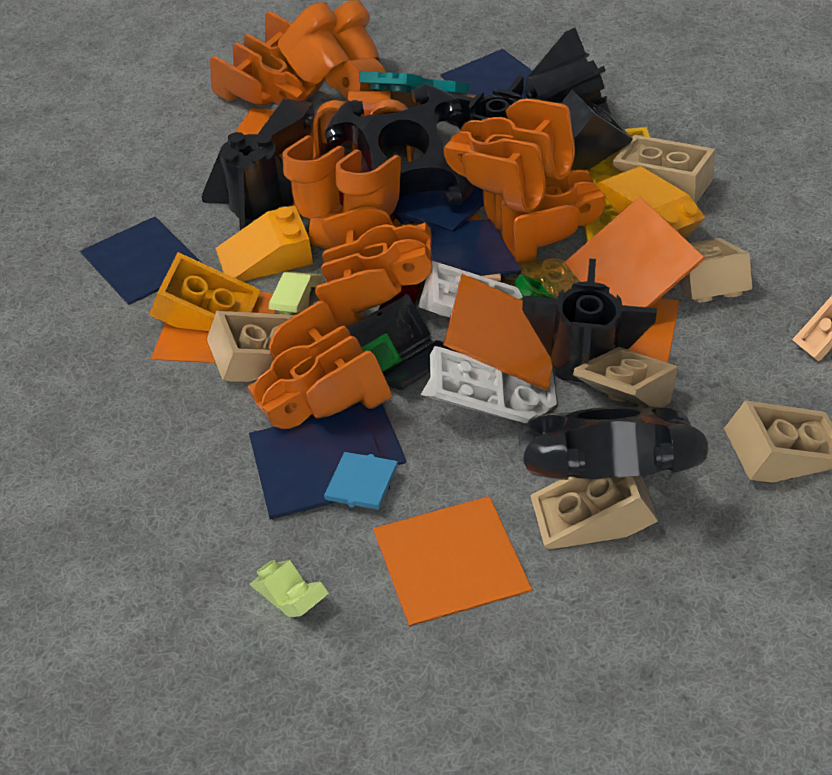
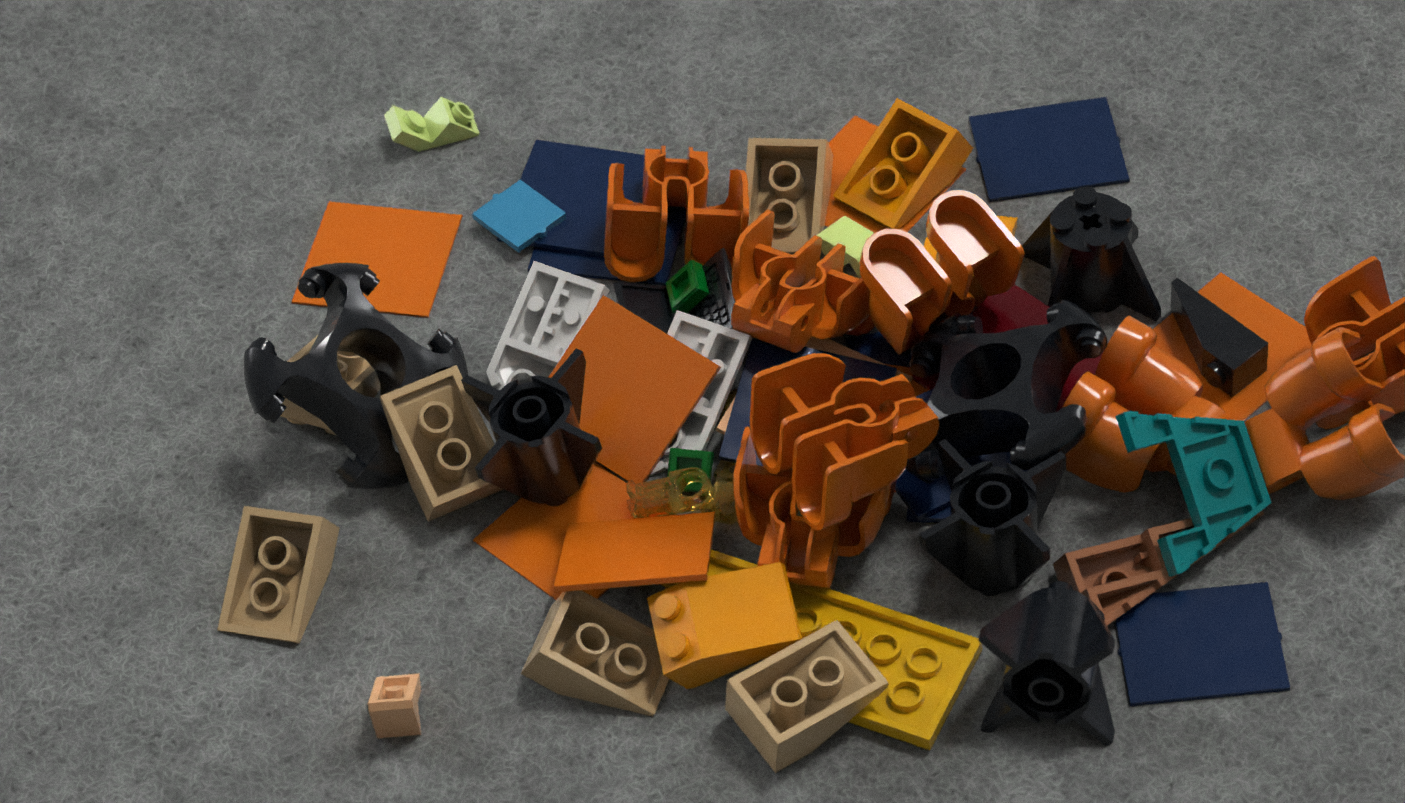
camera: 120 degrees right, 5 degrees up
(594, 132) = (912, 613): black slope -> none

